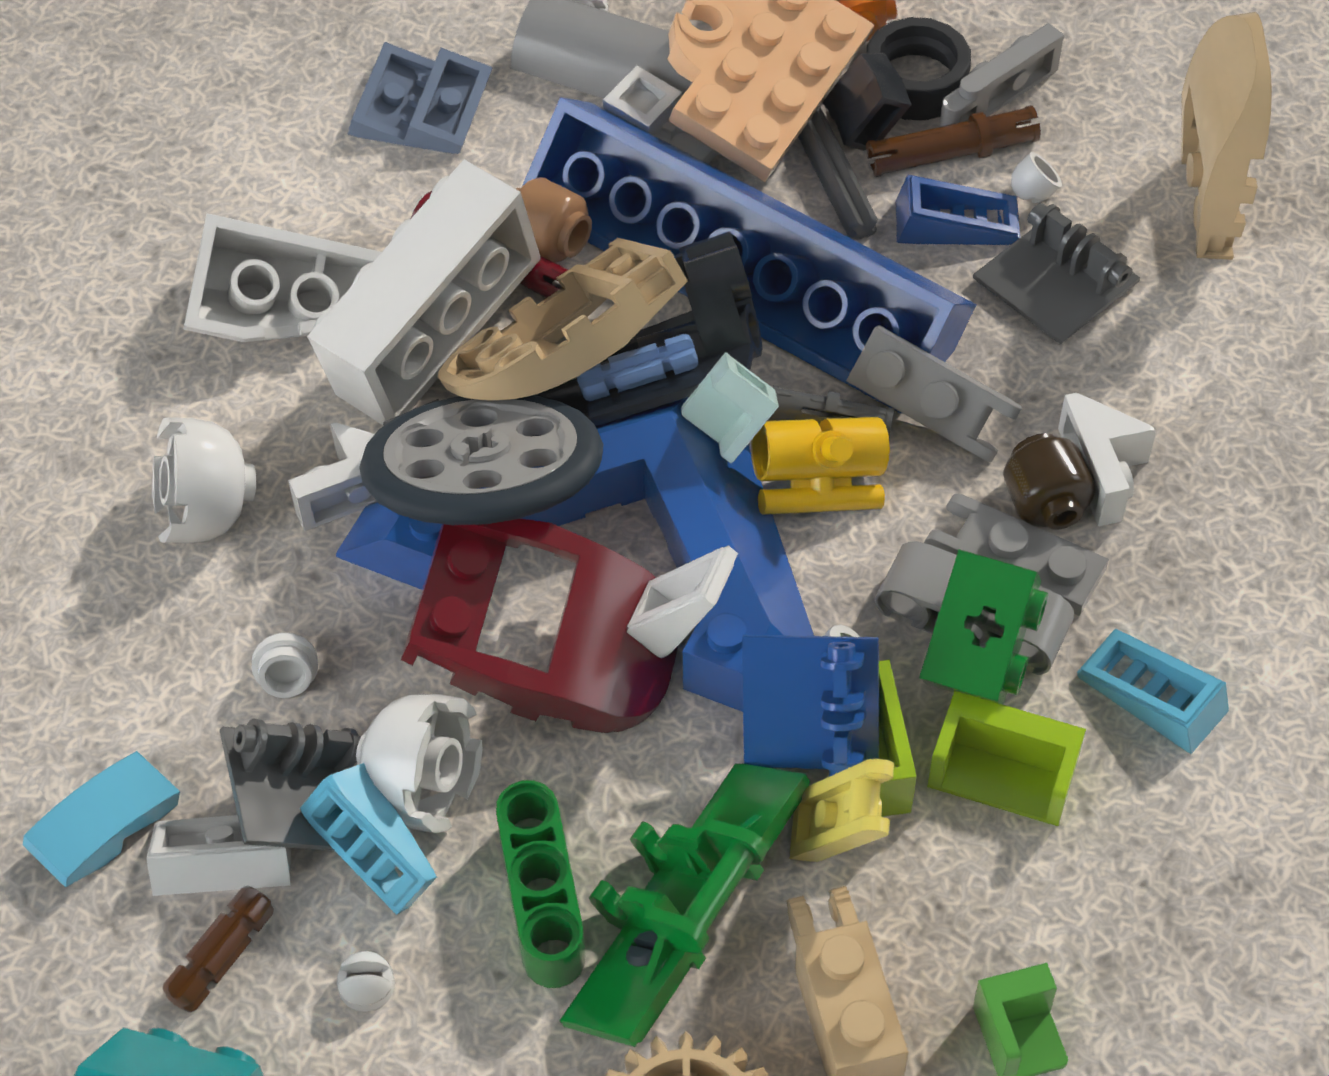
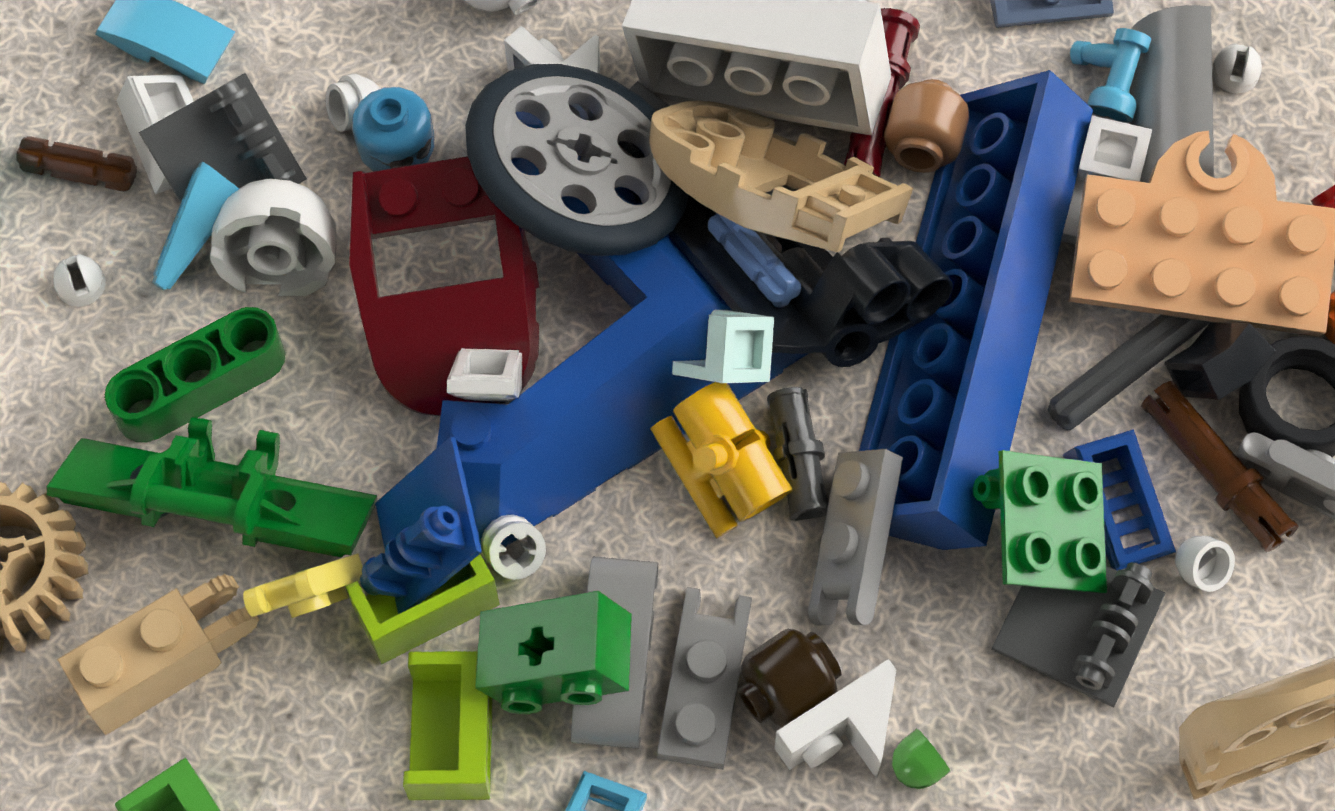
camera: 70 degrees right, 10 degrees up
(345, 629) = (393, 129): none -> dark azure head
(549, 67) = (1122, 58): none -> medium azure piece
(957, 235) = (1048, 521): none -> hinge
(1154, 411) = (918, 762): none -> bright green hinge

